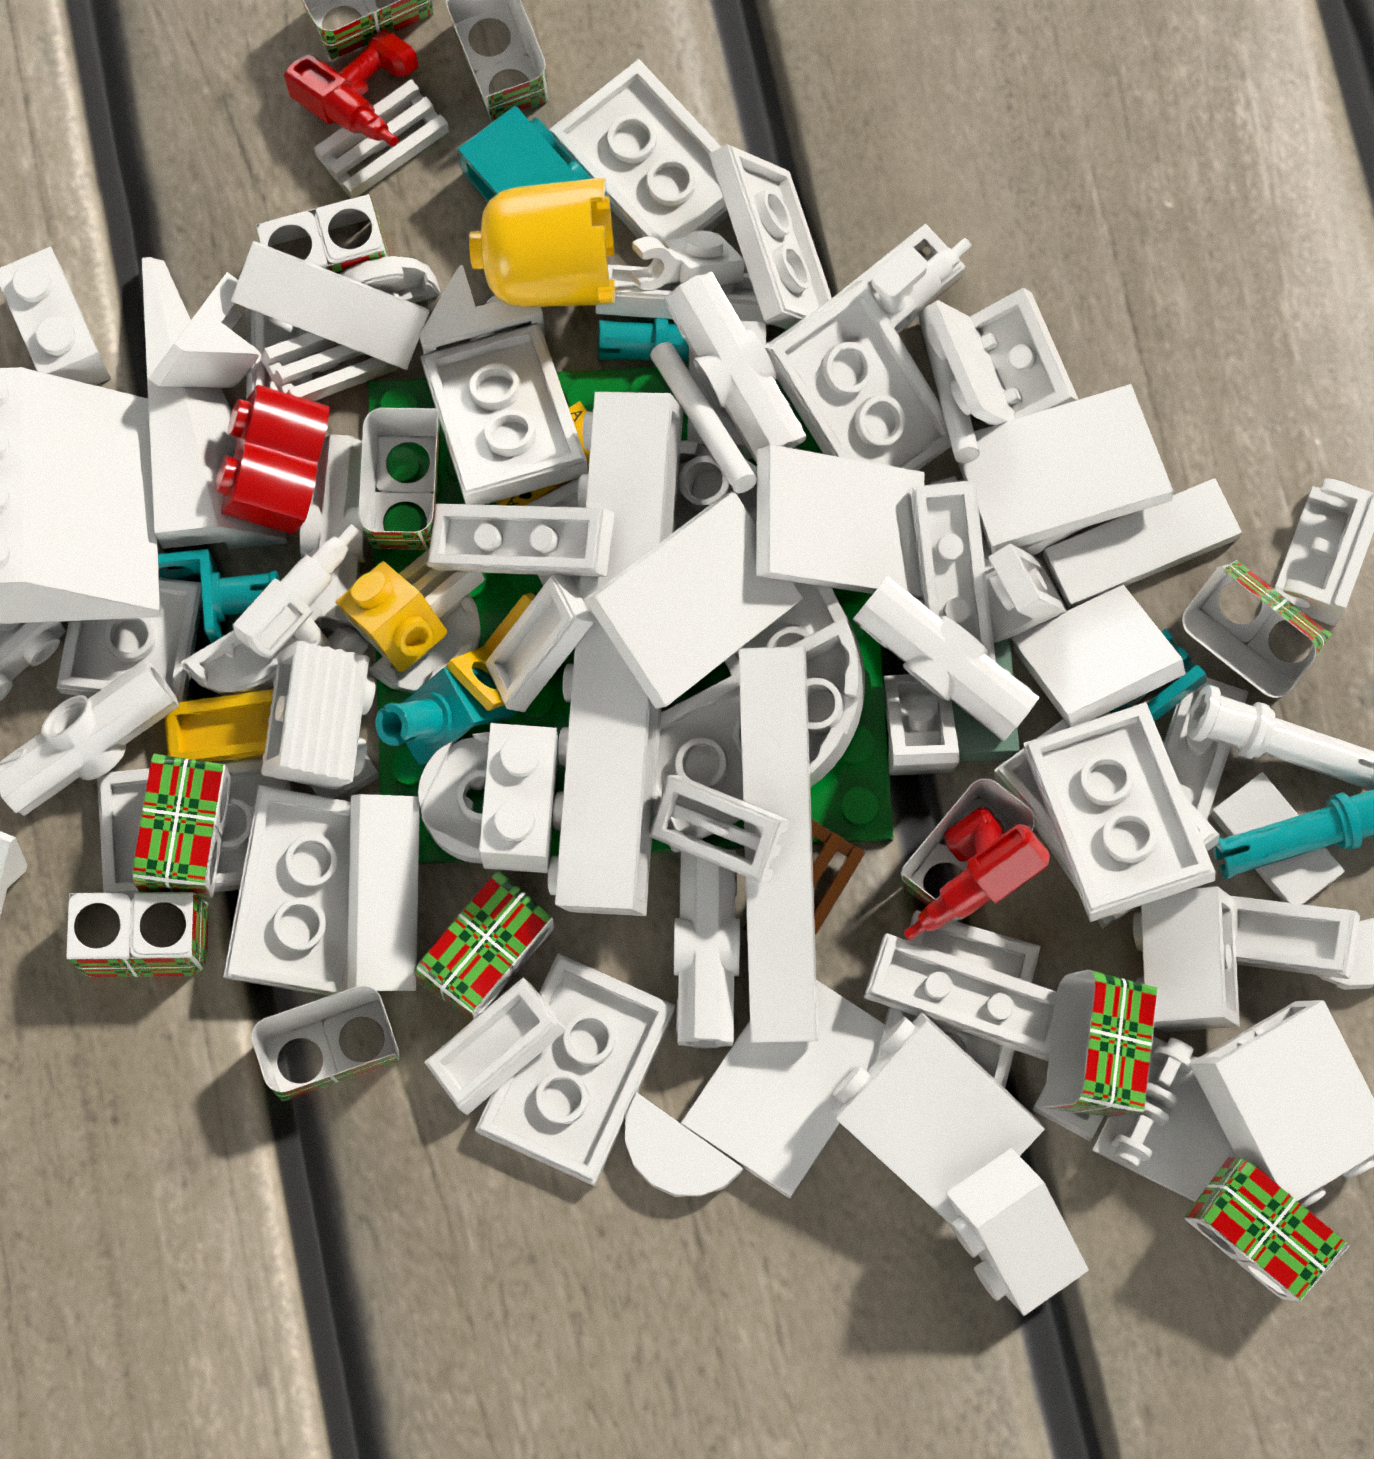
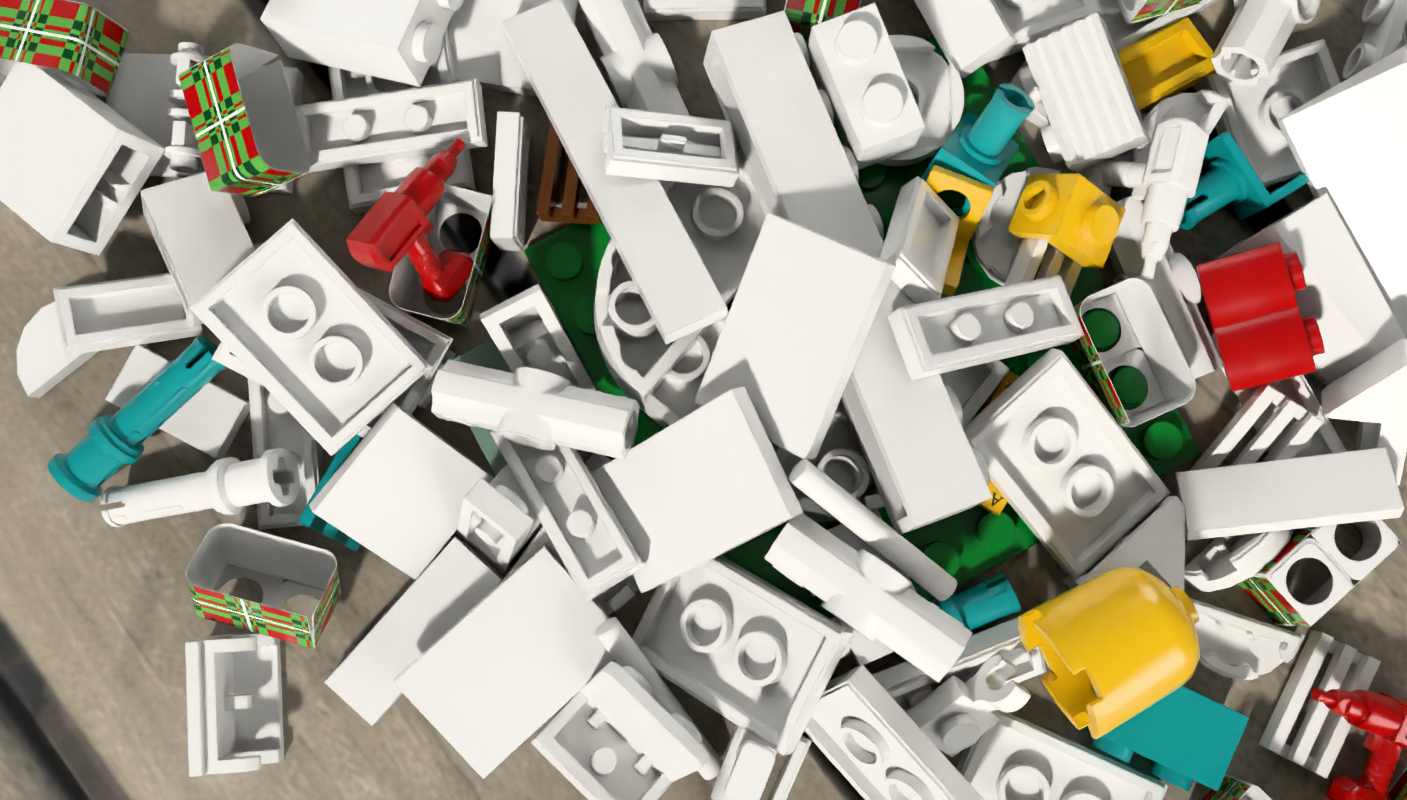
camera: 155 degrees right, 10 degrees up
(427, 219) = (1241, 645): none -> white tile
(876, 896) = (510, 181): none -> white tile

